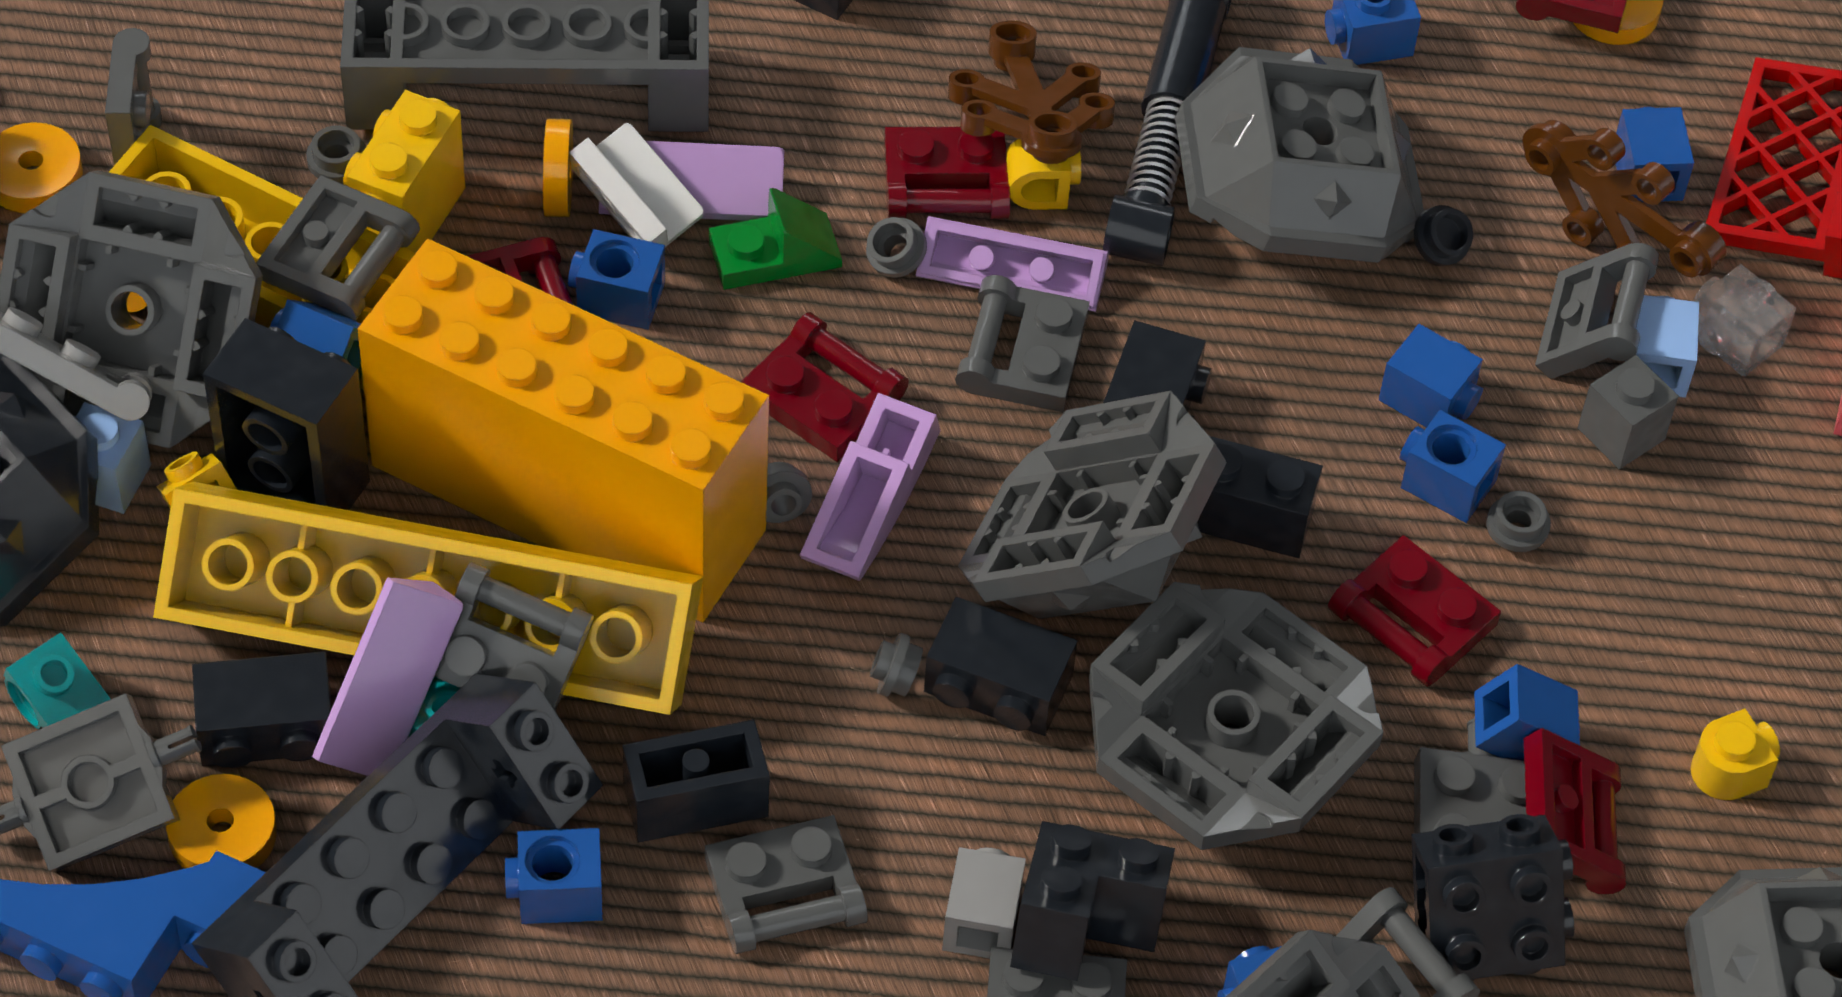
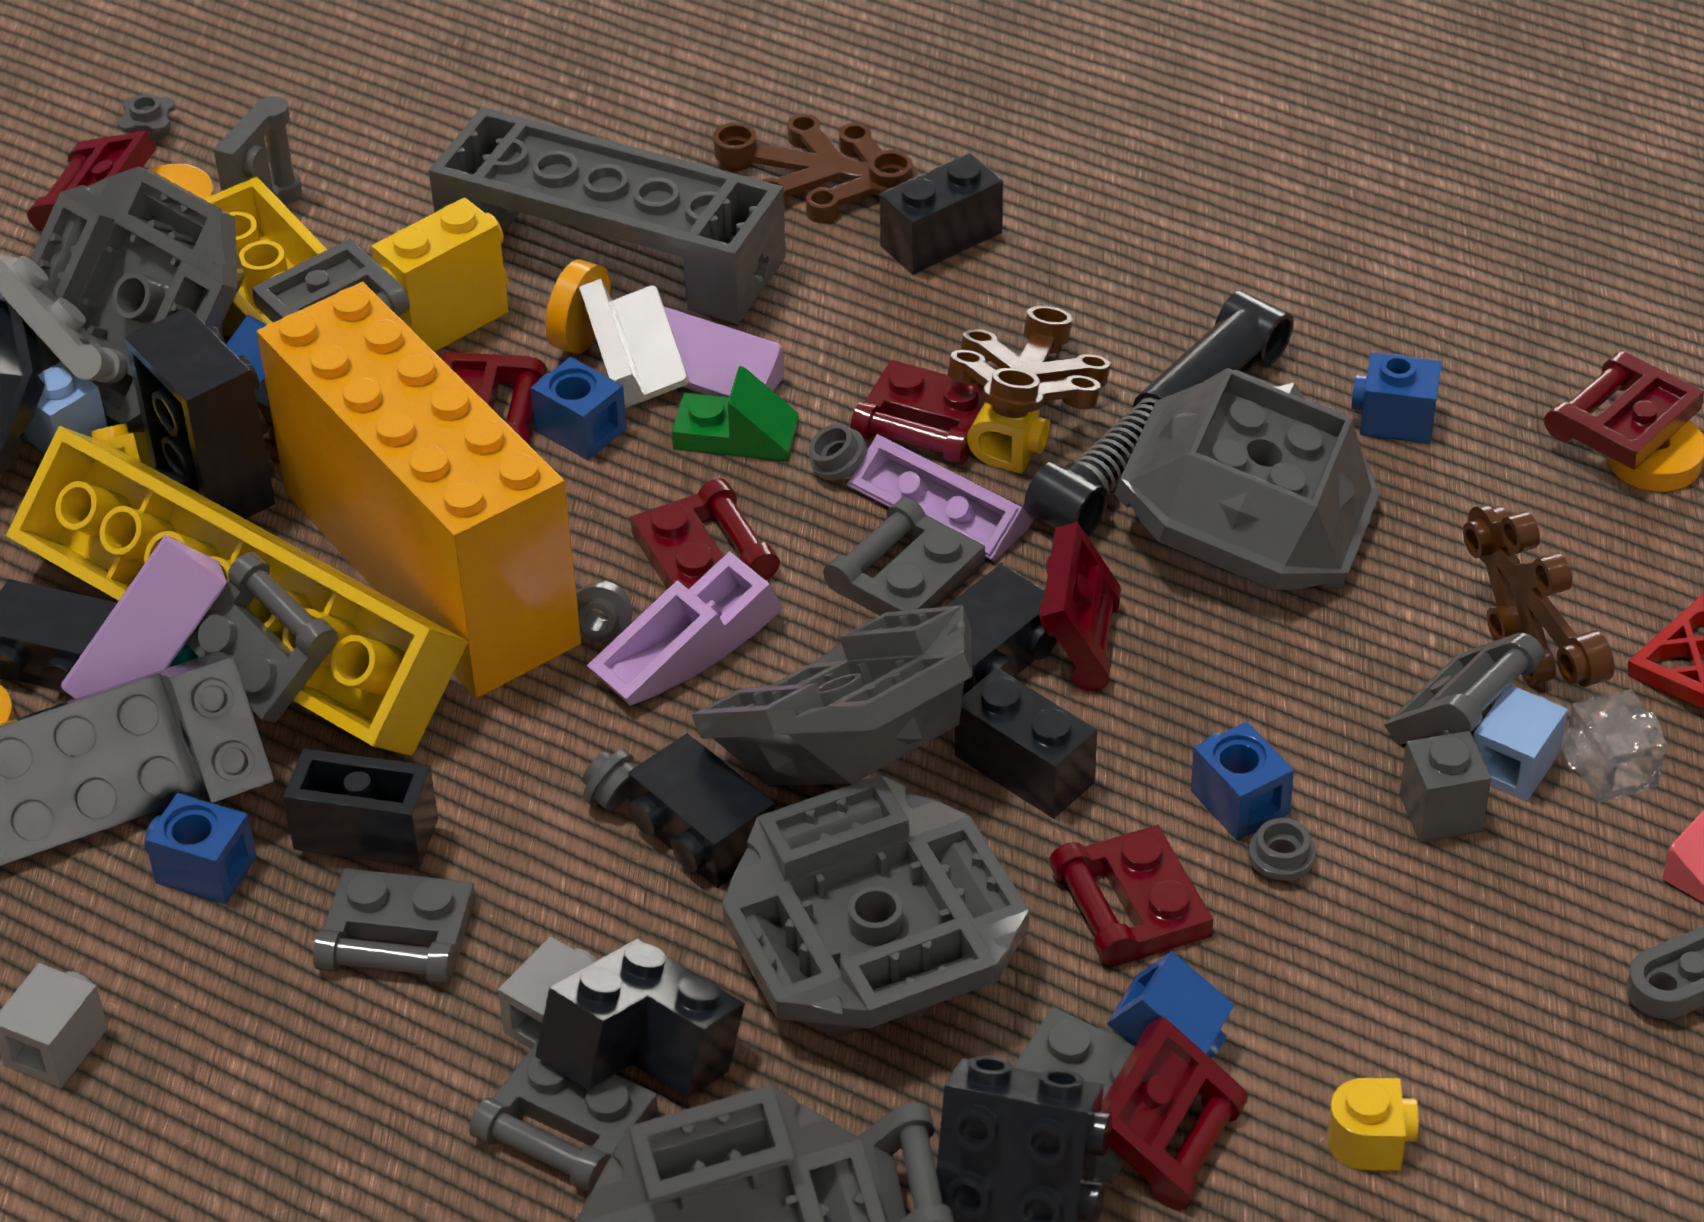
camera: 30 degrees right, 10 degrees down
(1227, 353) = (1080, 605): none -> dark red plate
(1431, 376) = (1268, 696): blue brick -> none
(1443, 235) = (1357, 589): black plate -> none
(1657, 137) = (1608, 580): blue brick -> none

